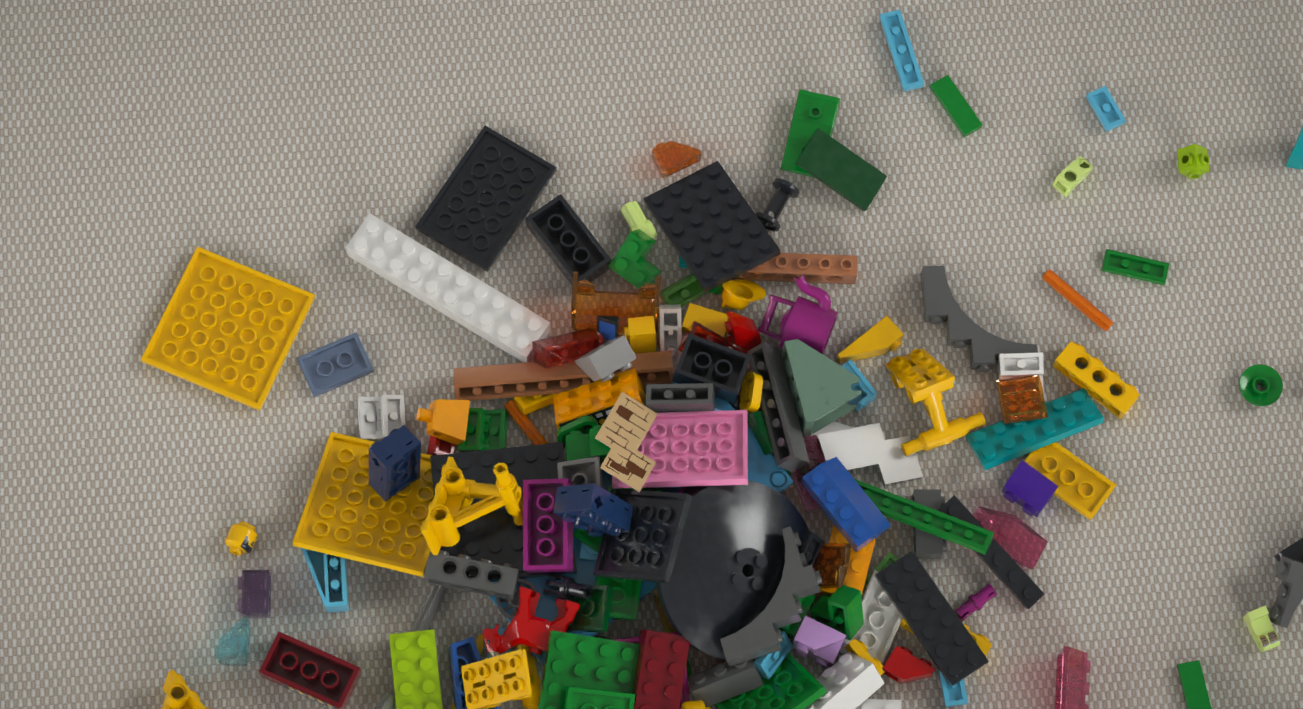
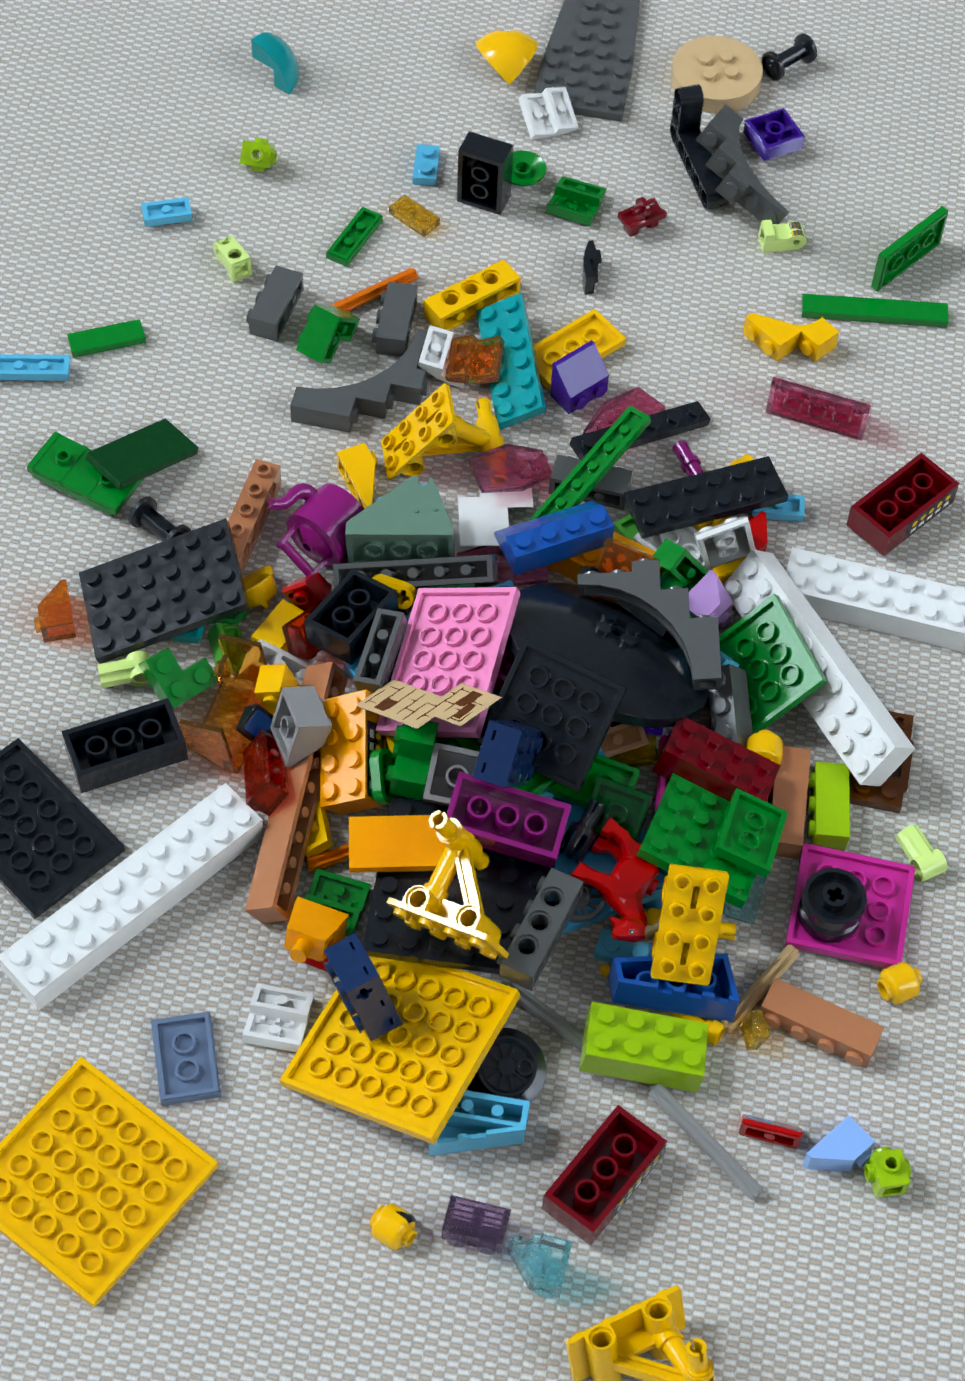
camera: 75 degrees left, 15 degrees down
(376, 588) = (511, 1067): none -> black wheel
(519, 449) = (393, 844): none -> light orange tile
(882, 639) = (725, 542): none -> white slope
(912, 455) = (510, 468): none -> clear pink piece
(1012, 272) = (324, 332): none -> green brick
(1034, 224) = (275, 303): none -> dark grey brick
(1050, 324) = (395, 319): none -> dark grey brick
(1138, 651) = (781, 338): none -> yellow arch
(1169, 468) = (590, 267): none -> black slope
(1176, 309) = (414, 215): none -> clear yellow plate
(1228, 352) = (484, 173): none -> black brick
(1239, 500) = (643, 214): none -> dark red hips
(1240, 303) = (426, 165): none -> medium azure plate
(1243, 441) = (576, 200): none -> green slope

